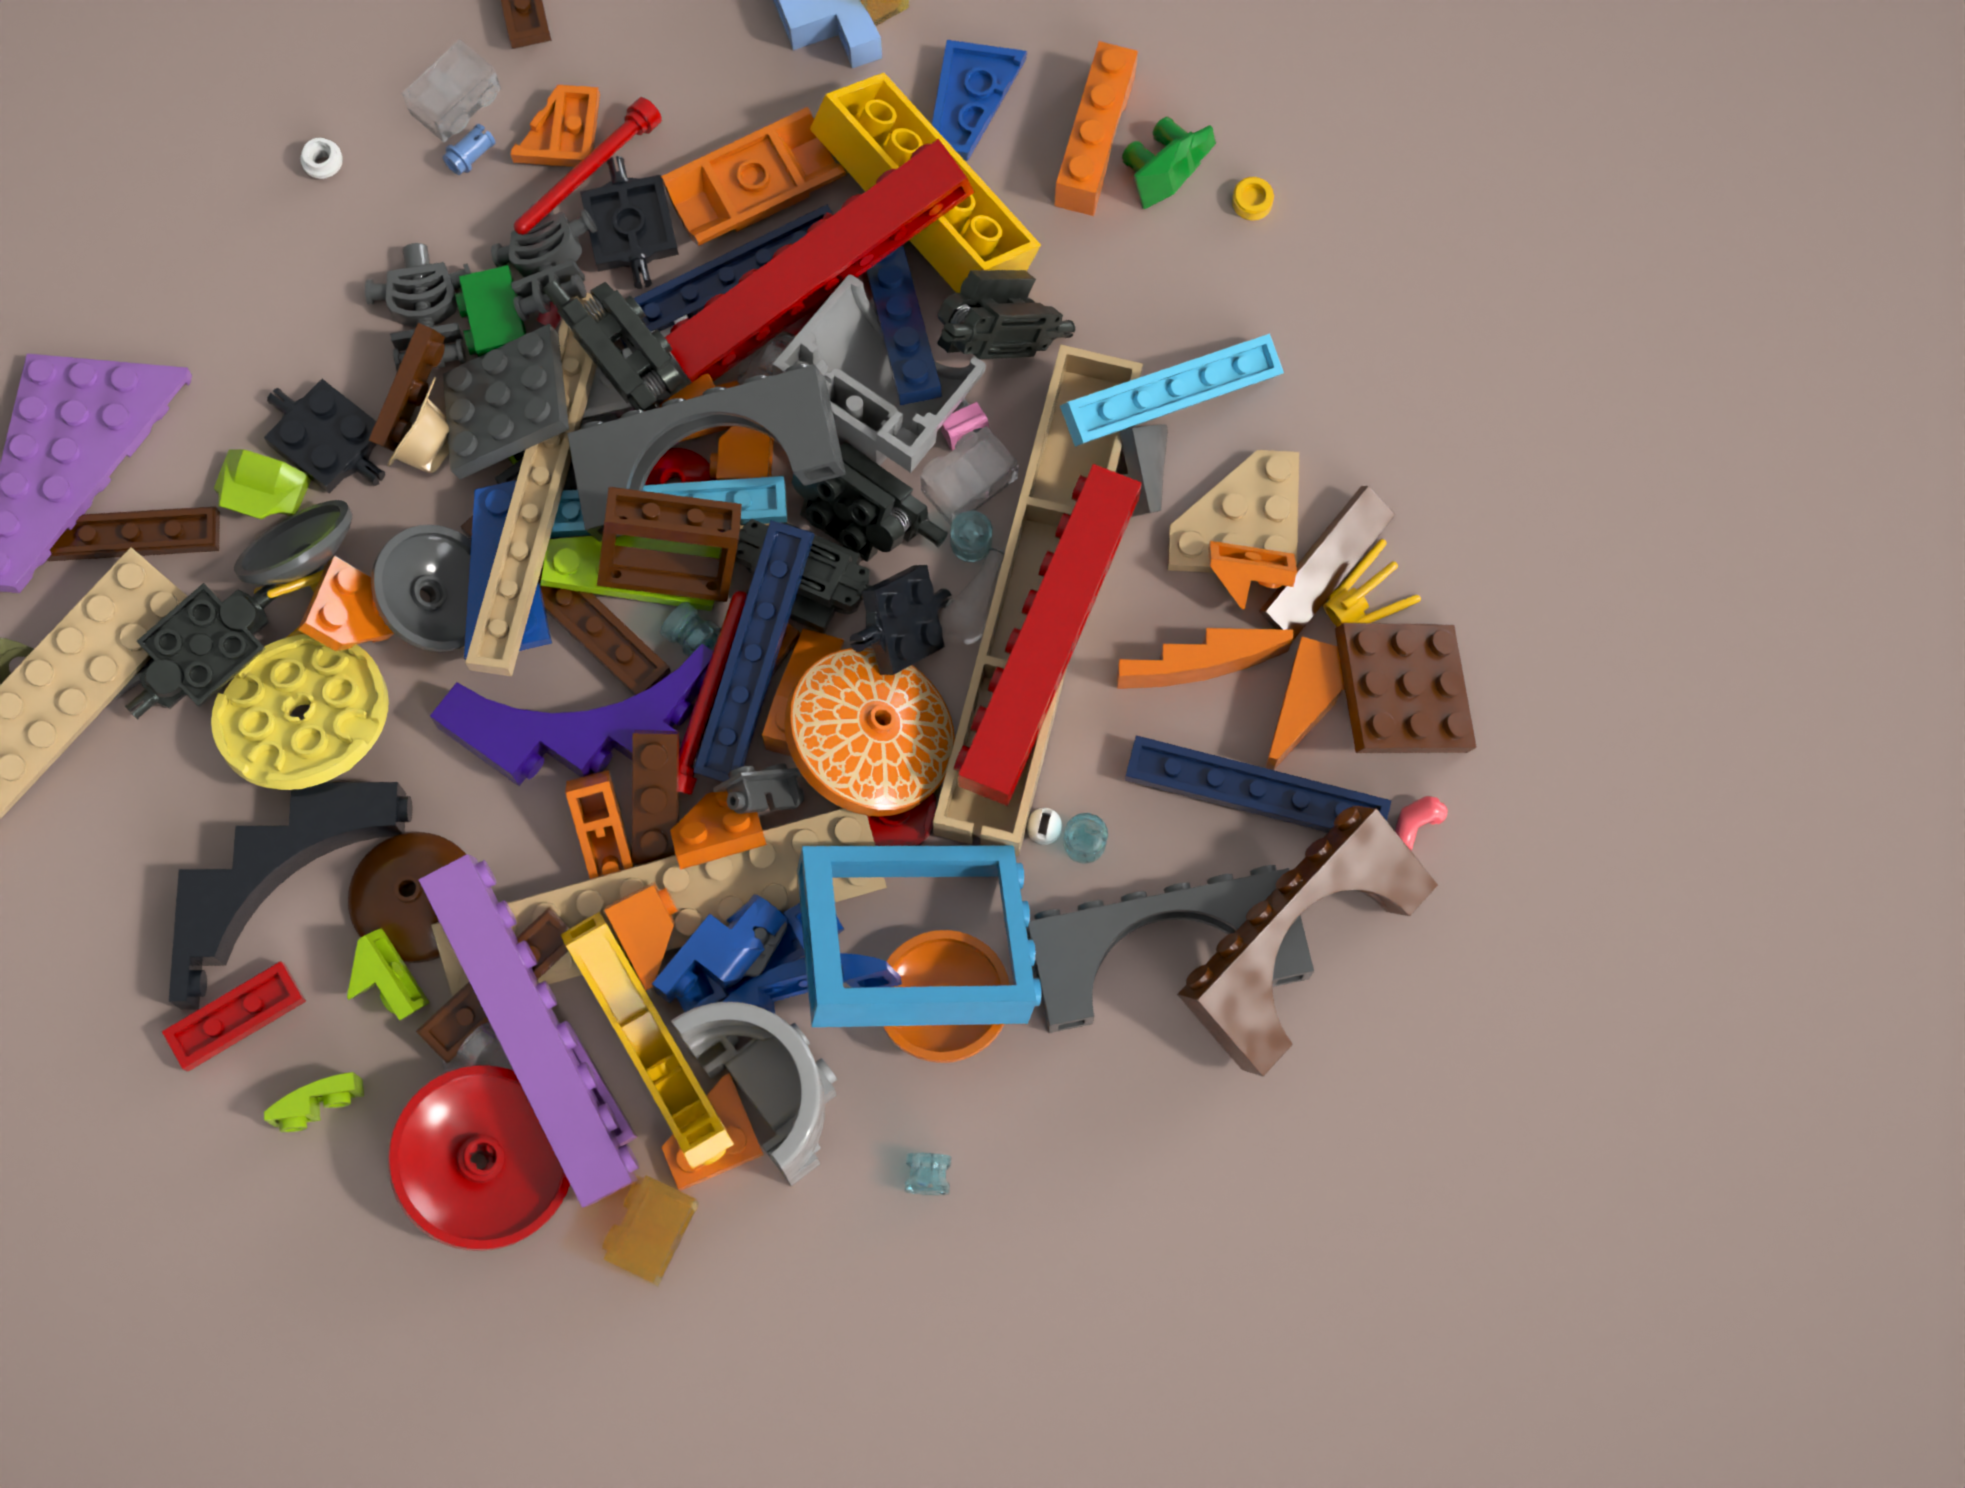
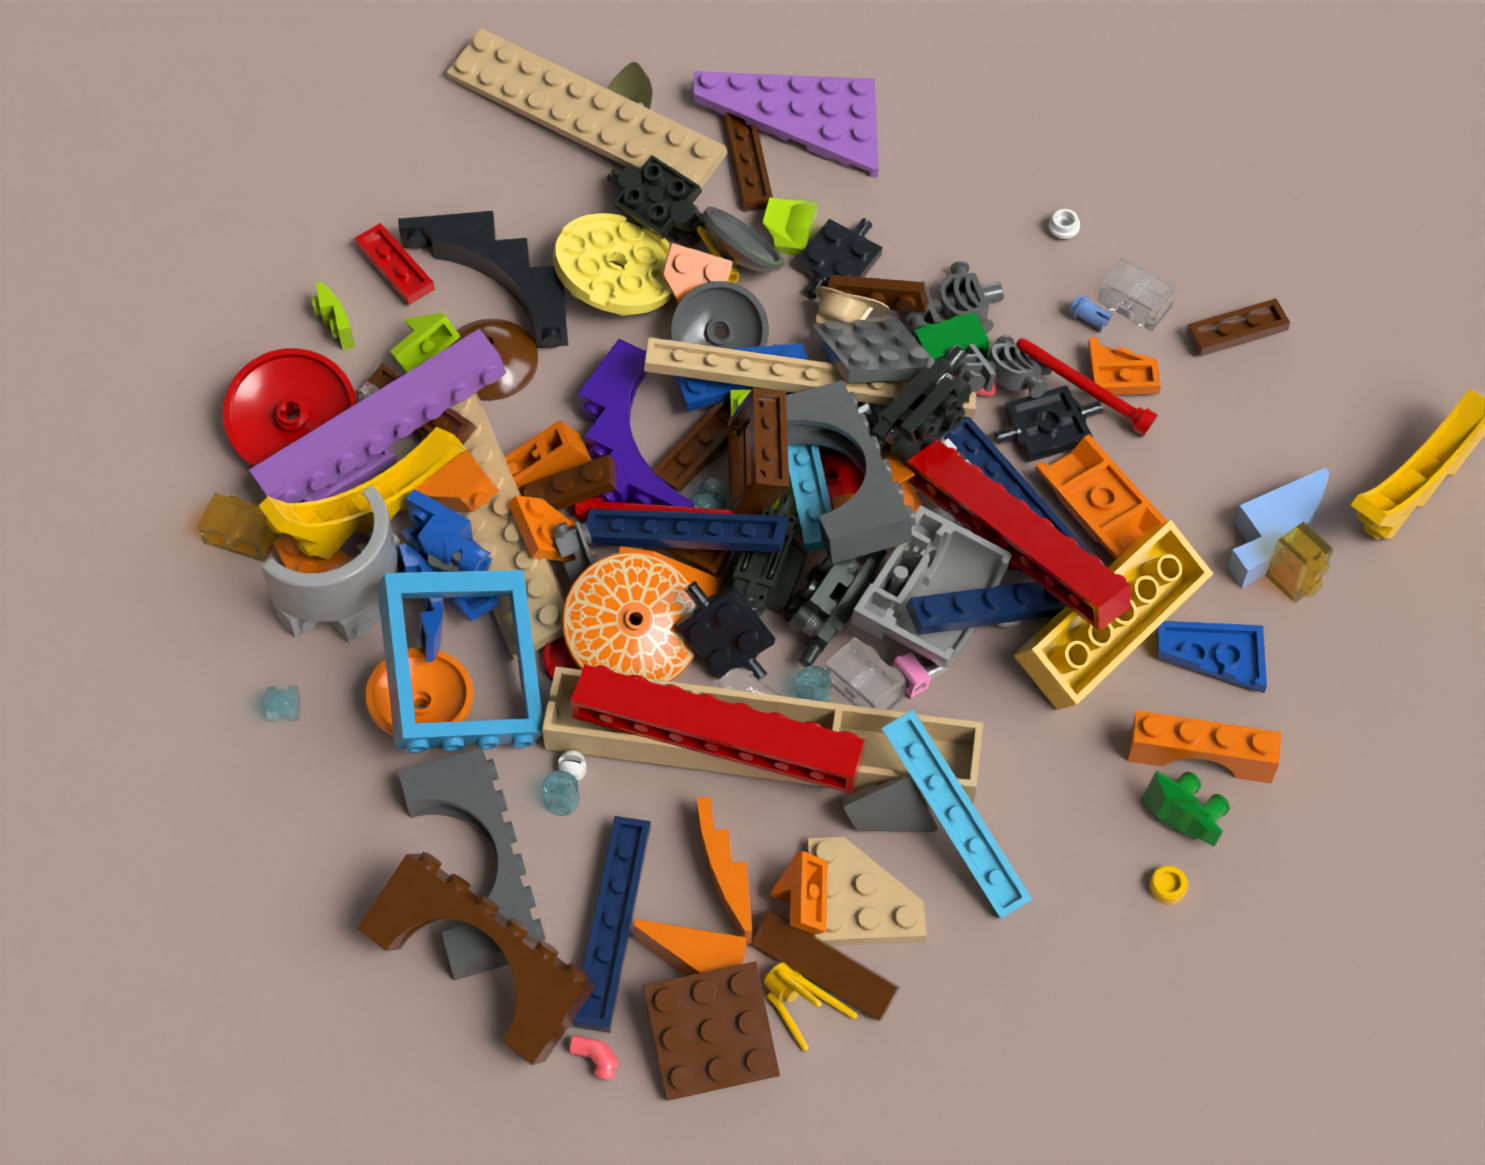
camera: 85 degrees right, 15 degrees down
(998, 318) = (997, 672): pearl dark grey piece -> none

